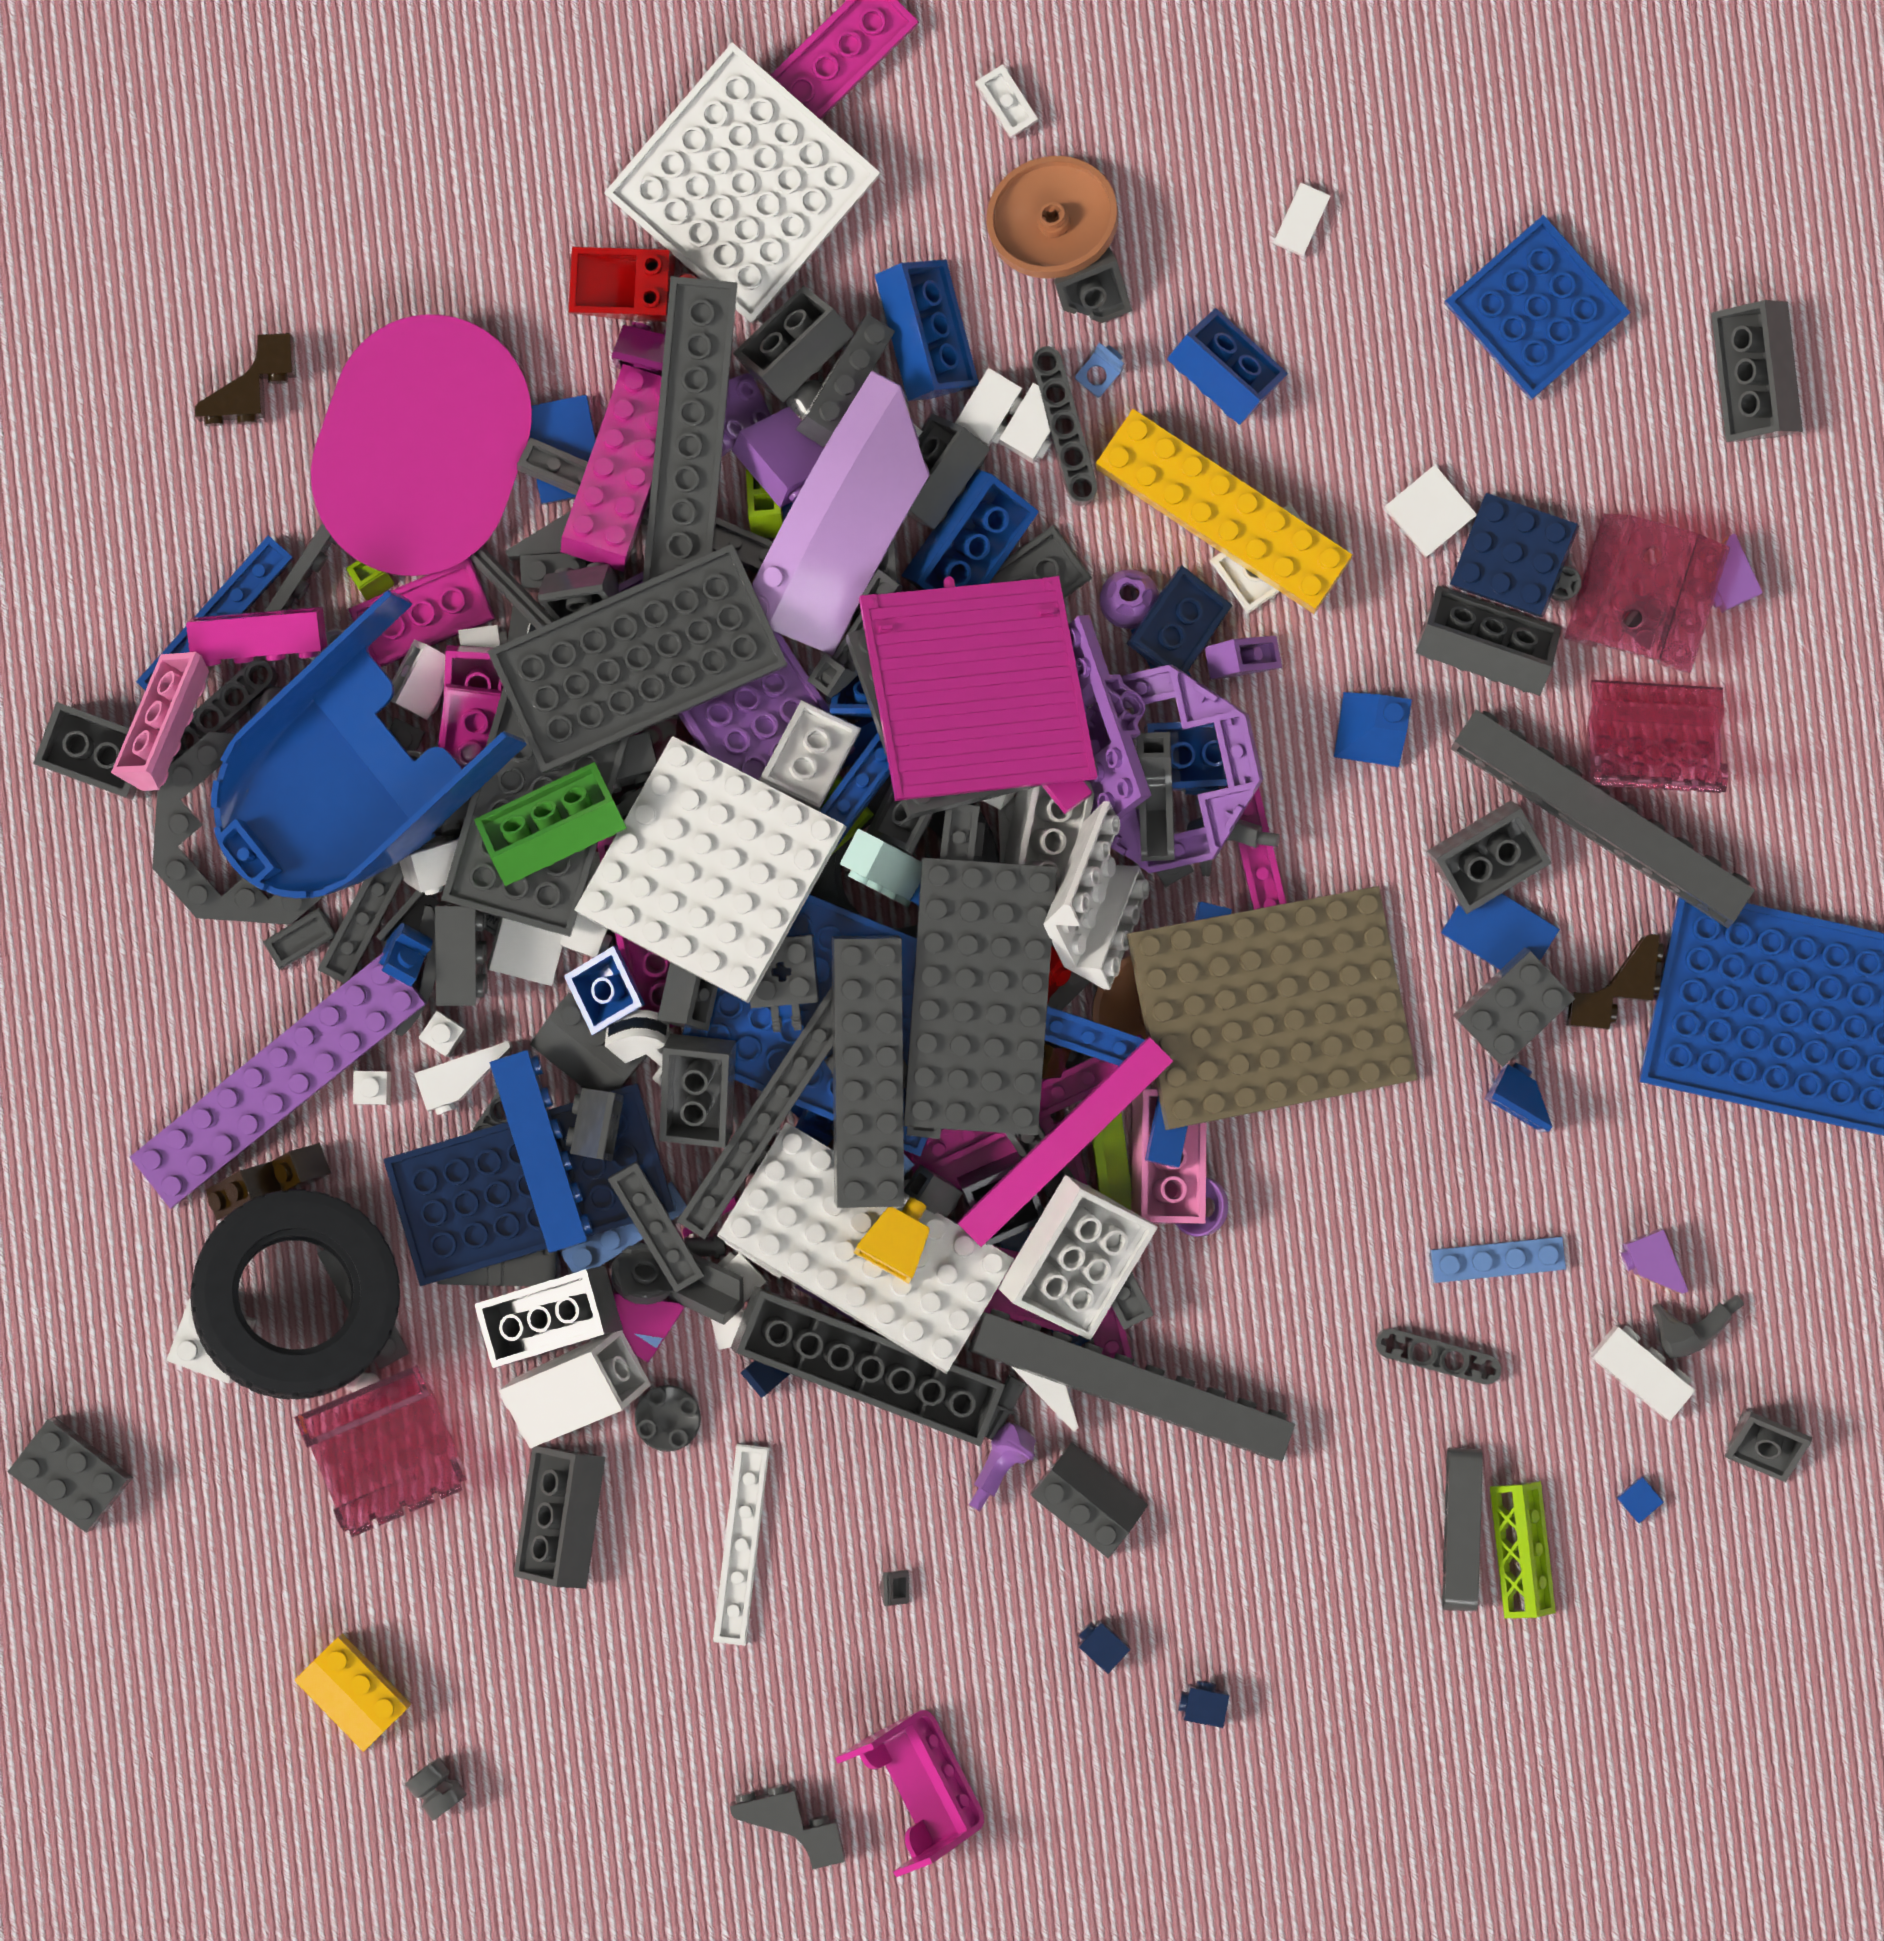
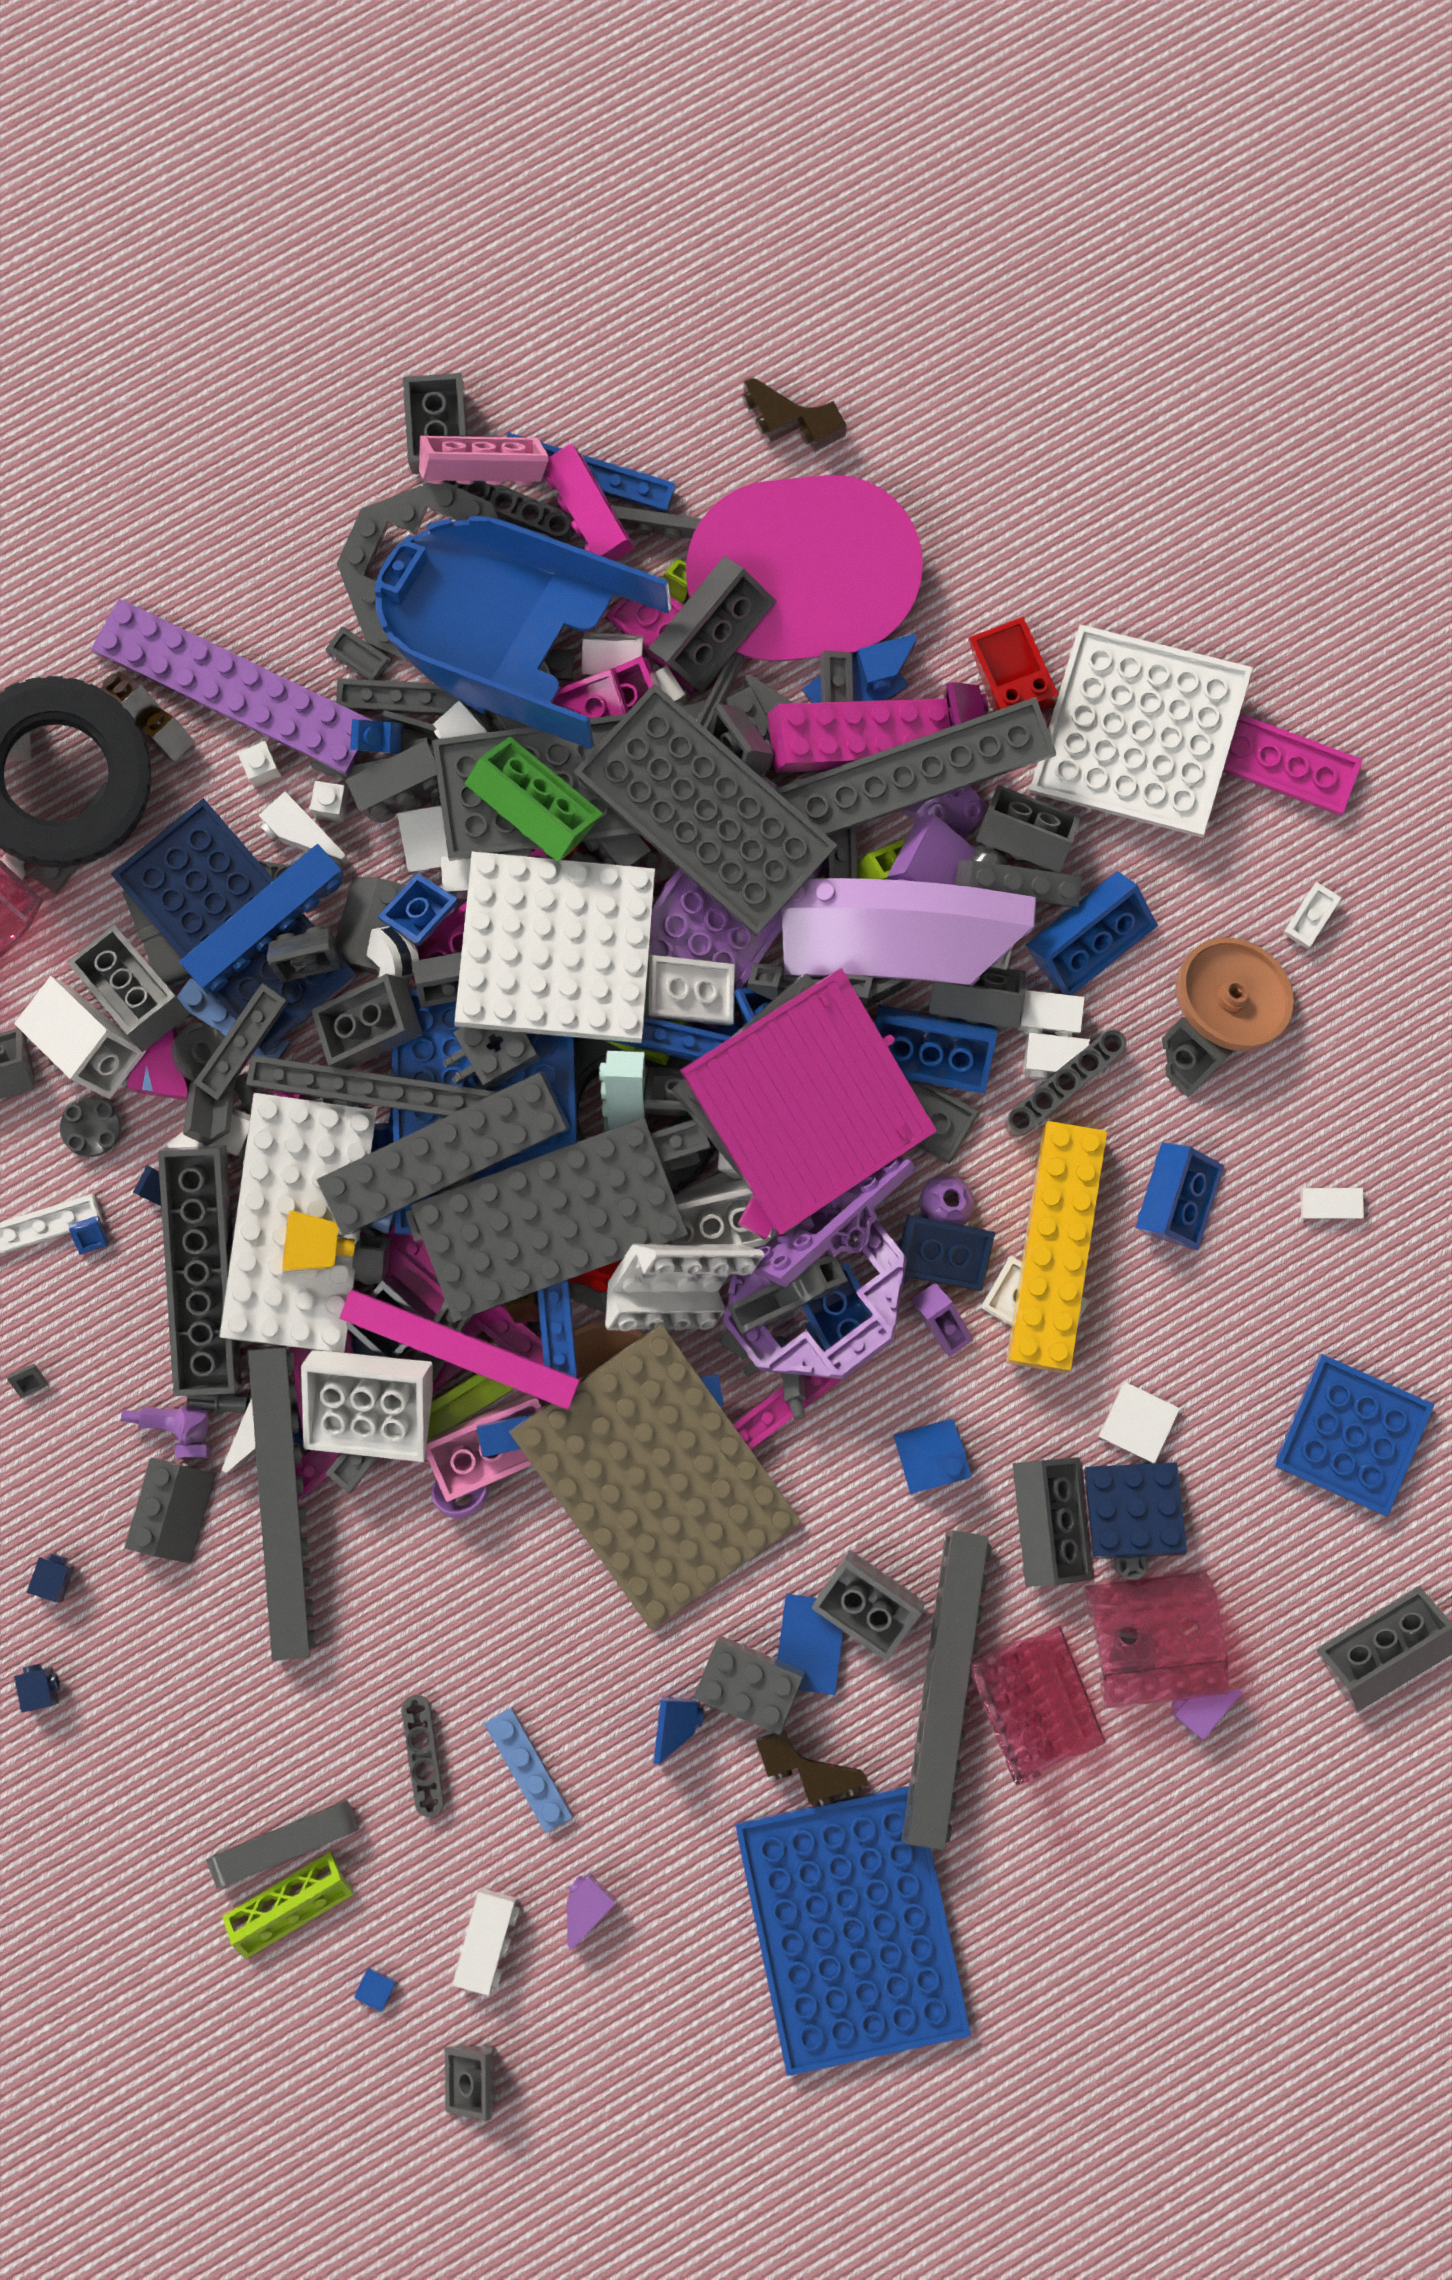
camera: 70 degrees right, 5 degrees down
(438, 564) = (712, 624): none -> dark grey slope
(555, 409) = (884, 661): none -> blue slope
(777, 1465) = (88, 1235): none -> blue tile
(1041, 1452) = (193, 1451): none -> medium lavender tile
(1109, 360) = (1138, 1093): medium blue bracket -> none
(1684, 1339) = (529, 1966): dark grey animal -> none

